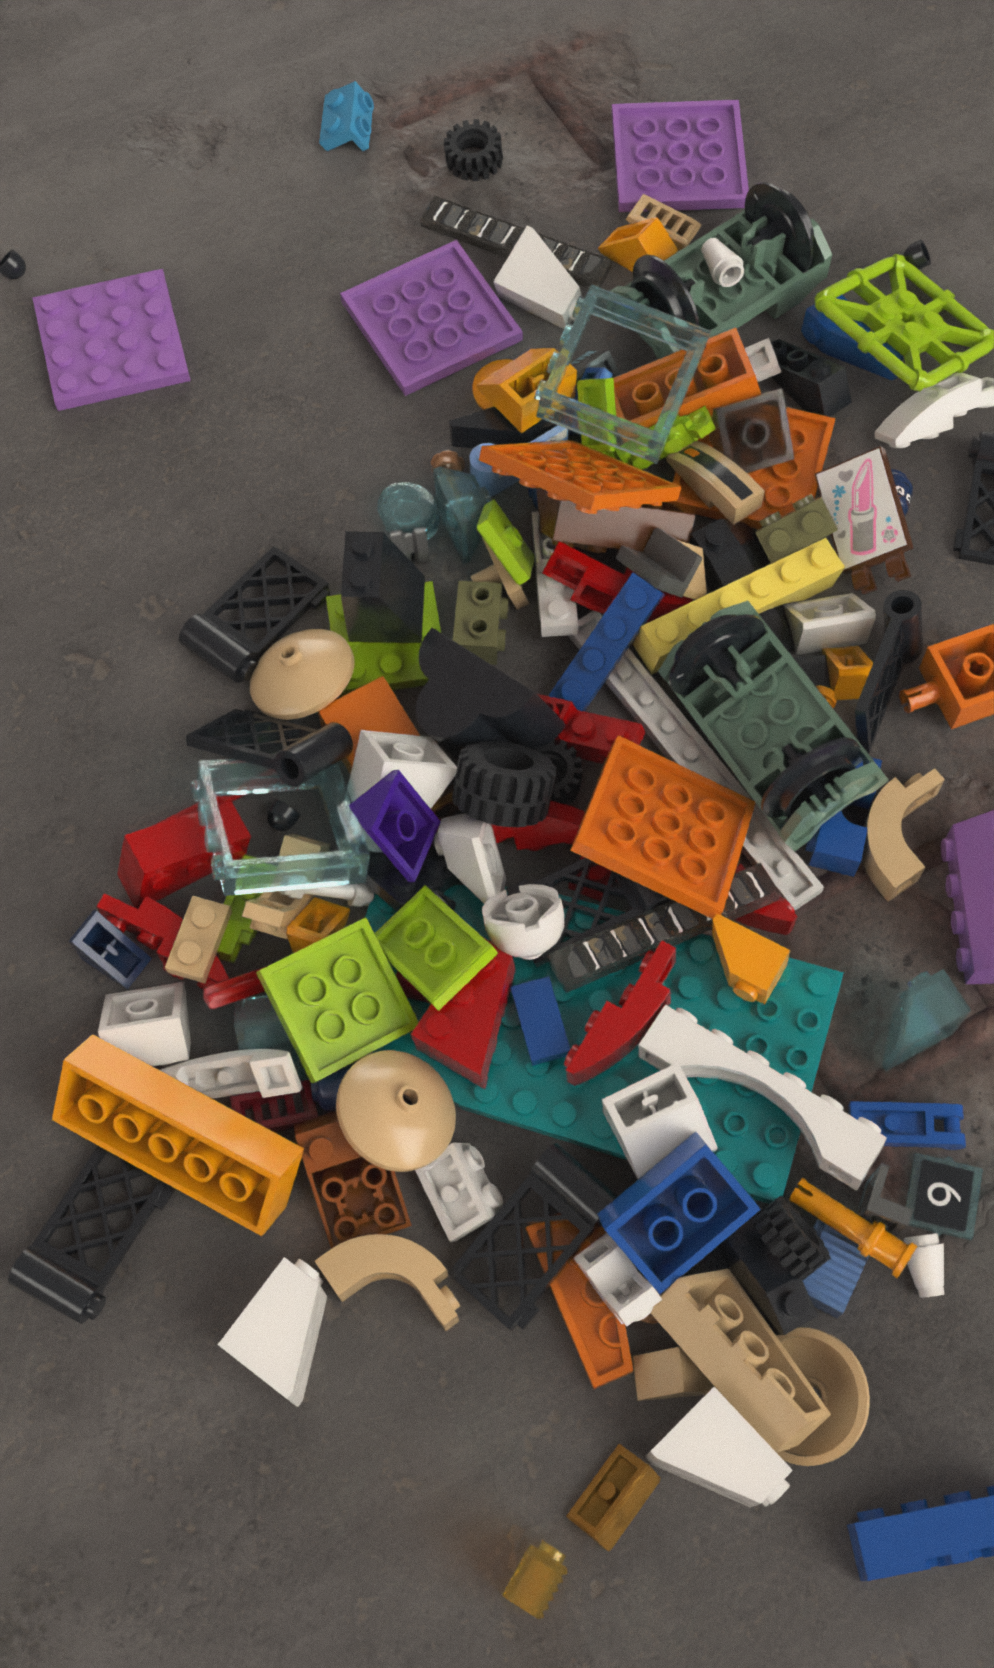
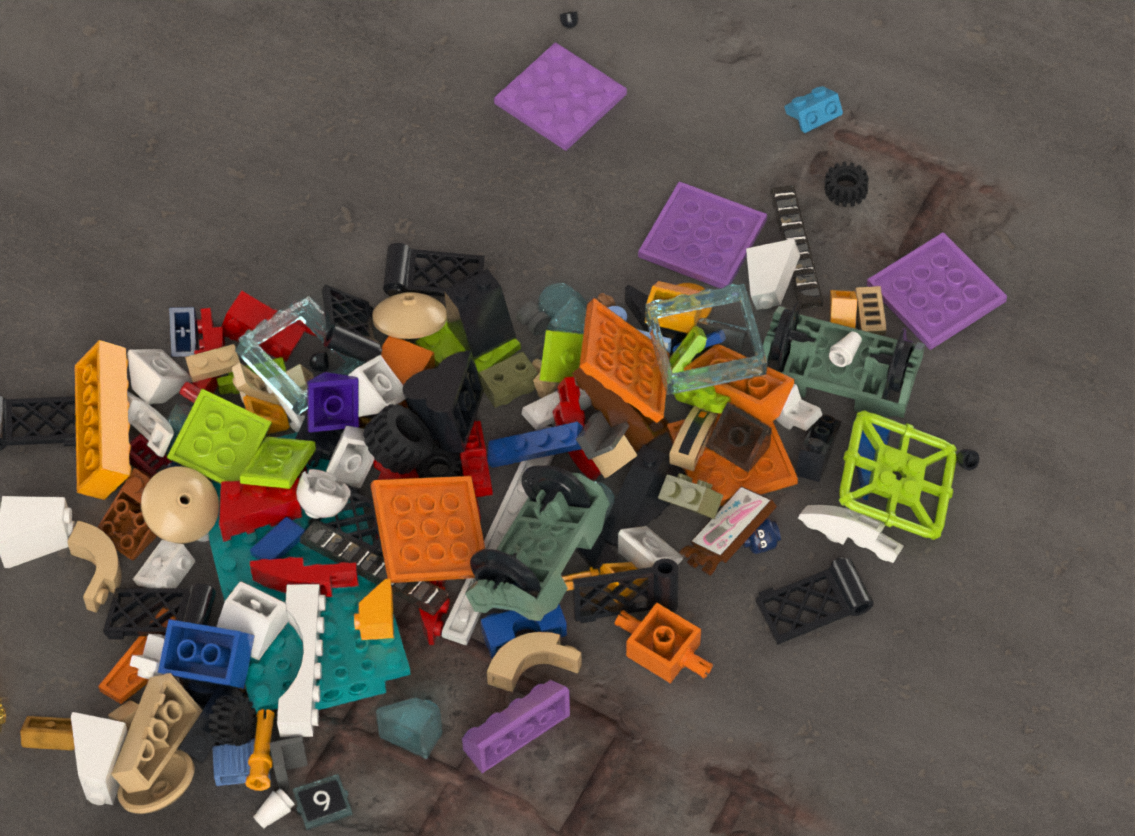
camera: 55 degrees right, 10 degrees down
(777, 584) = (654, 512): light yellow arch -> none
(914, 1123) = (349, 758): blue plate -> none

